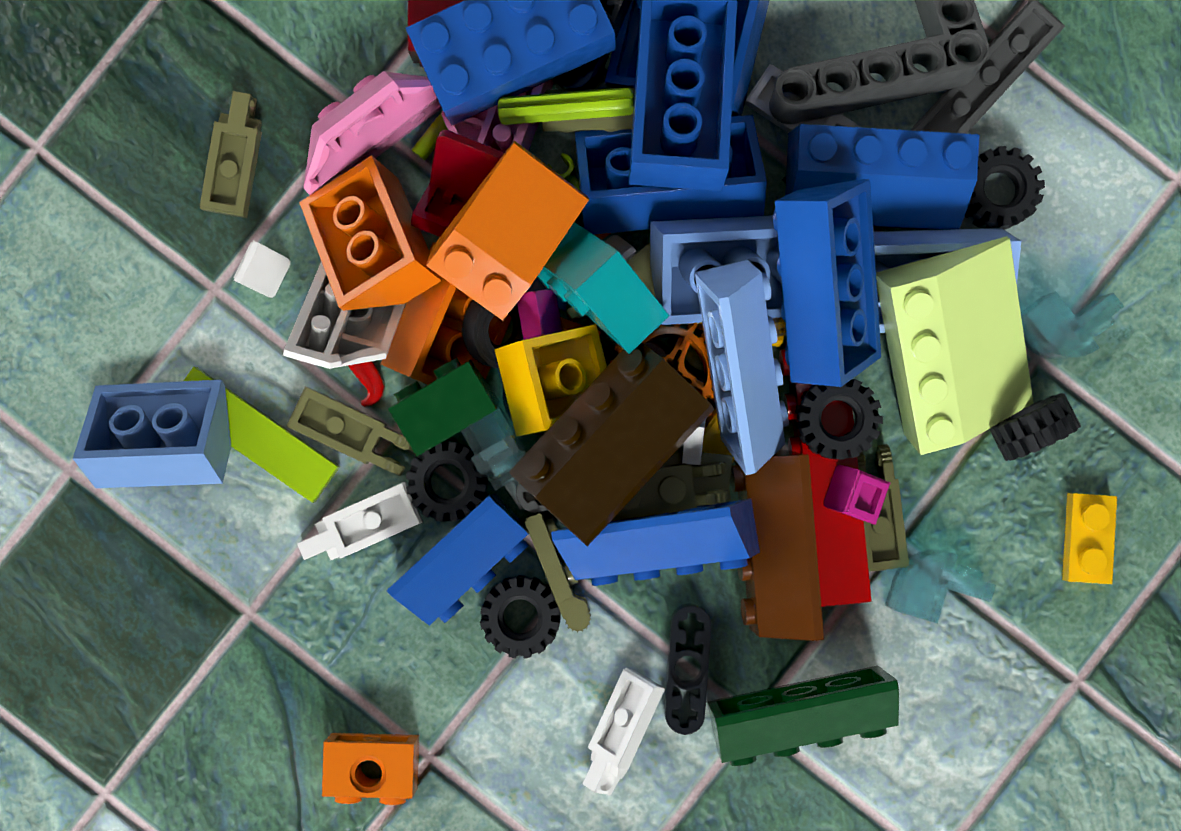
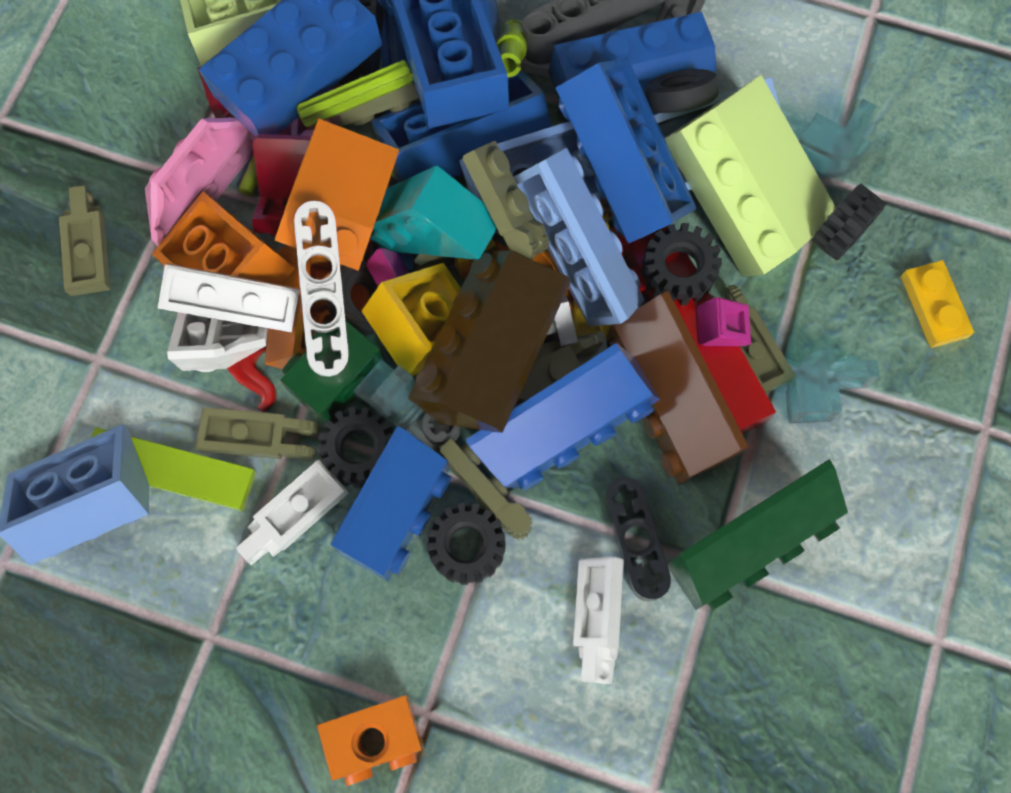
camera: 15 degrees left, 15 degrees down
(262, 269) = (134, 324): white slope -> none
(361, 303) = (228, 297): none -> white tile
(451, 337) = (326, 289): none -> white beam
(678, 302) = (505, 201): none -> olive hinge
(754, 102) = (512, 46): none -> lime pin
(911, 241) = (681, 90): none -> black tyre
(1026, 189) = (746, 44): black tyre -> none

